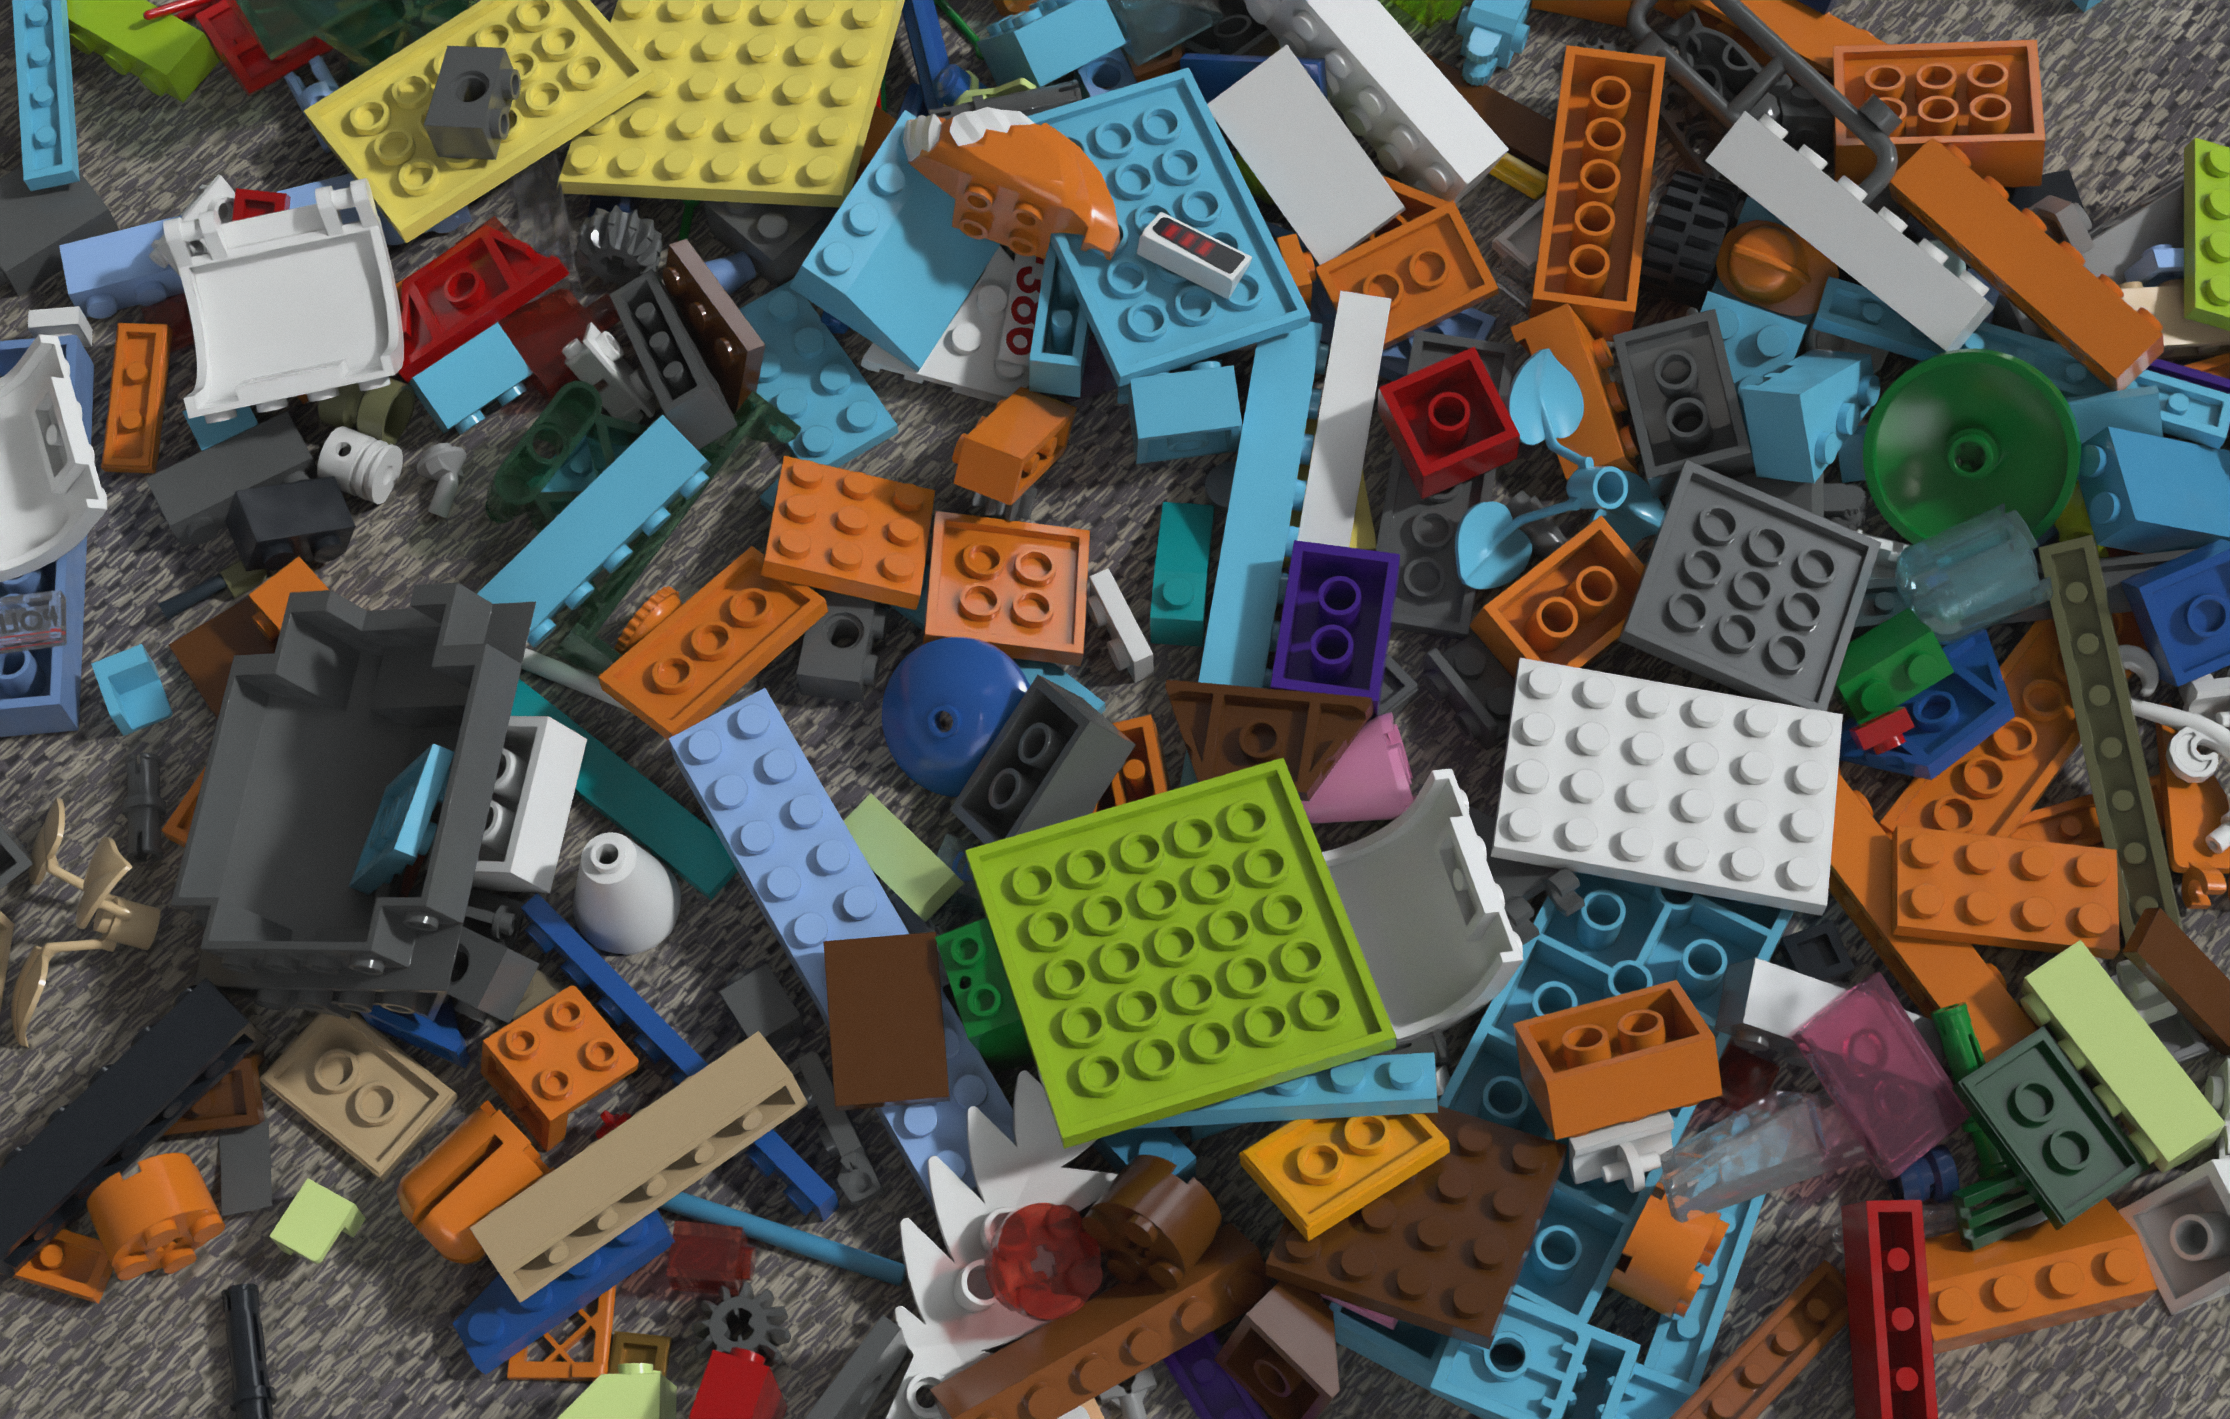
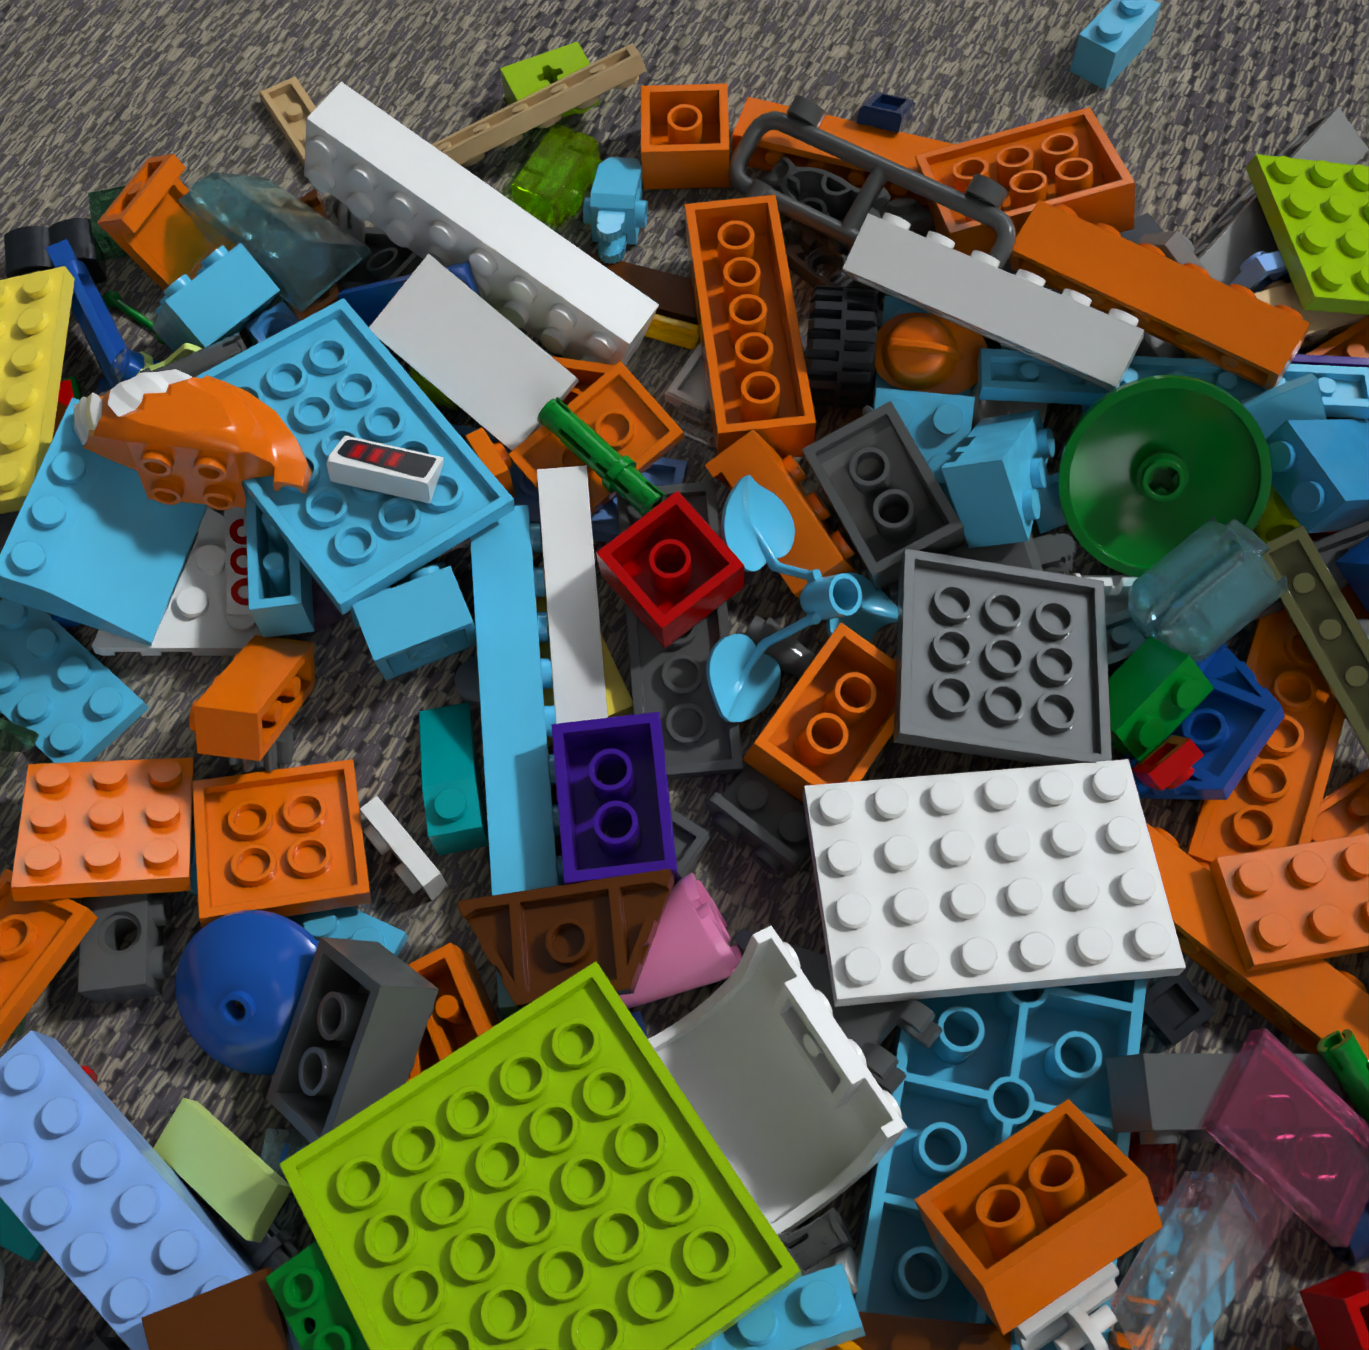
camera: 15 degrees left, 0 degrees up
(1419, 311) = (615, 470): none -> green pin

